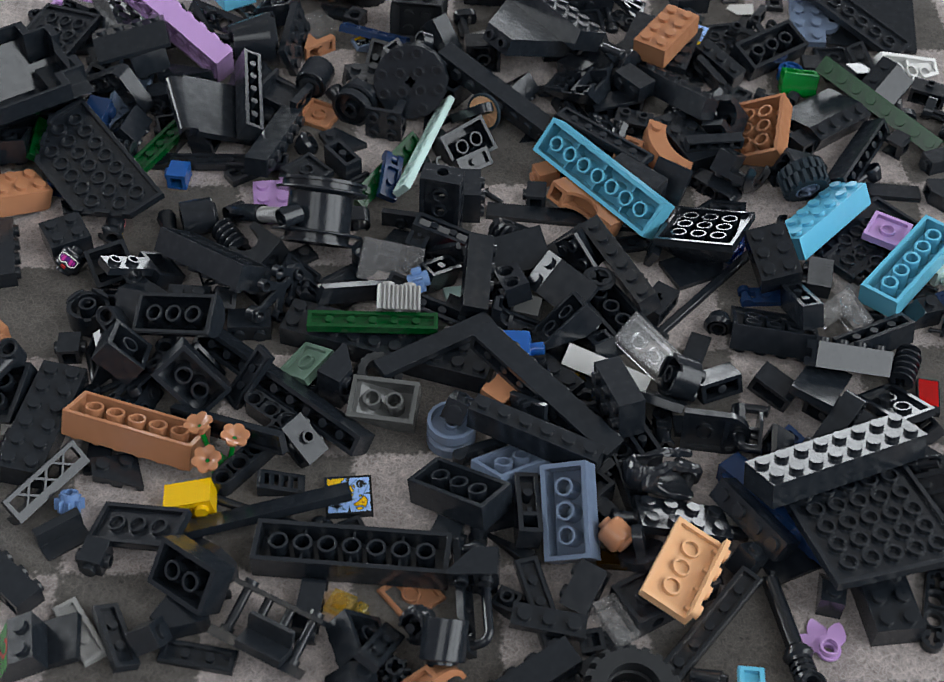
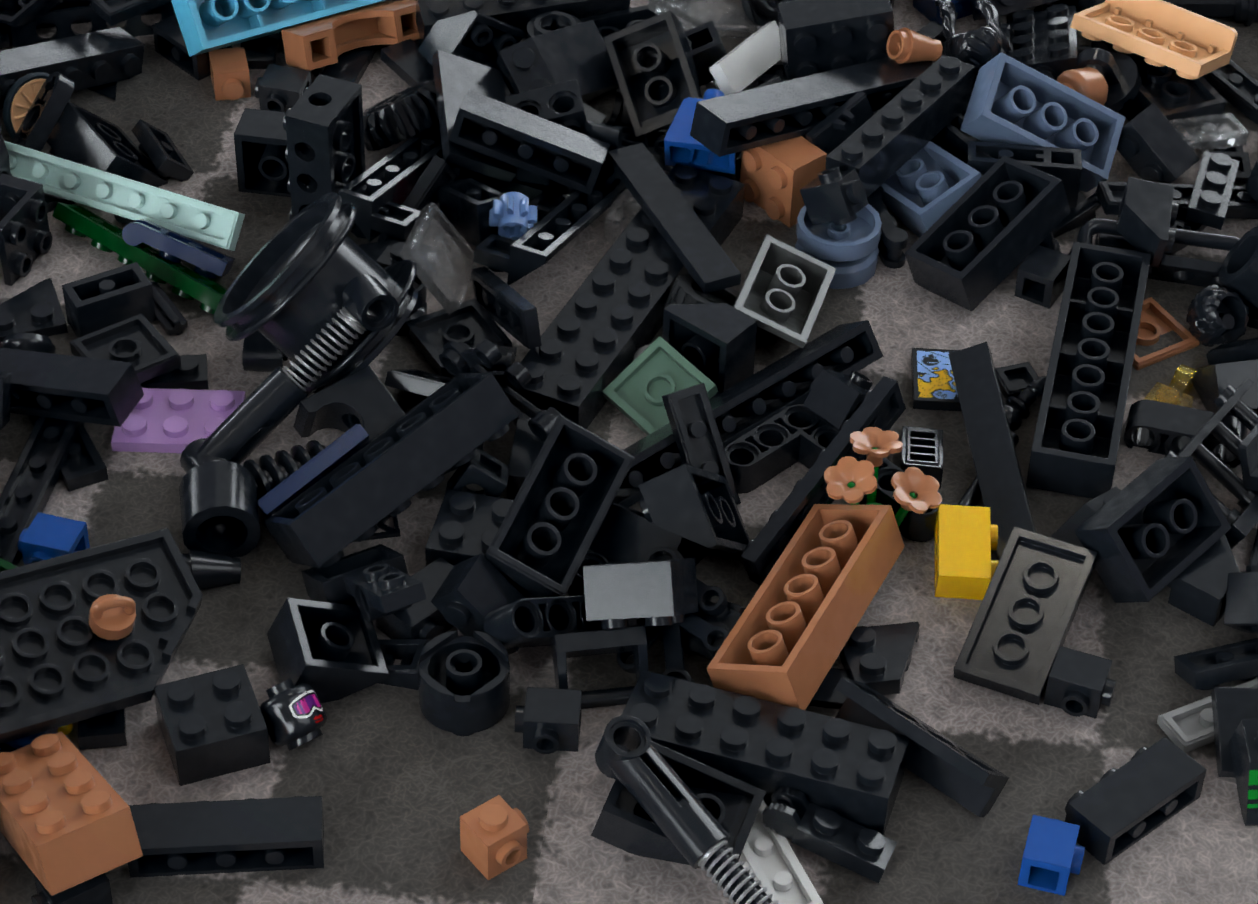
camera: 80 degrees left, 5 degrees down
(60, 534) = (1022, 734): black panel -> none
(68, 500) = (960, 714): medium blue gear -> none
(103, 184) = (112, 616): none -> nougat tile
(112, 229) = (204, 651): black animal -> none
(215, 236) = (314, 469): none -> dark blue tile
(372, 322) = (610, 278): dark green plate -> none
(398, 297) = (574, 230): light grey brick -> none
(611, 431) = (910, 47): none -> nougat cone

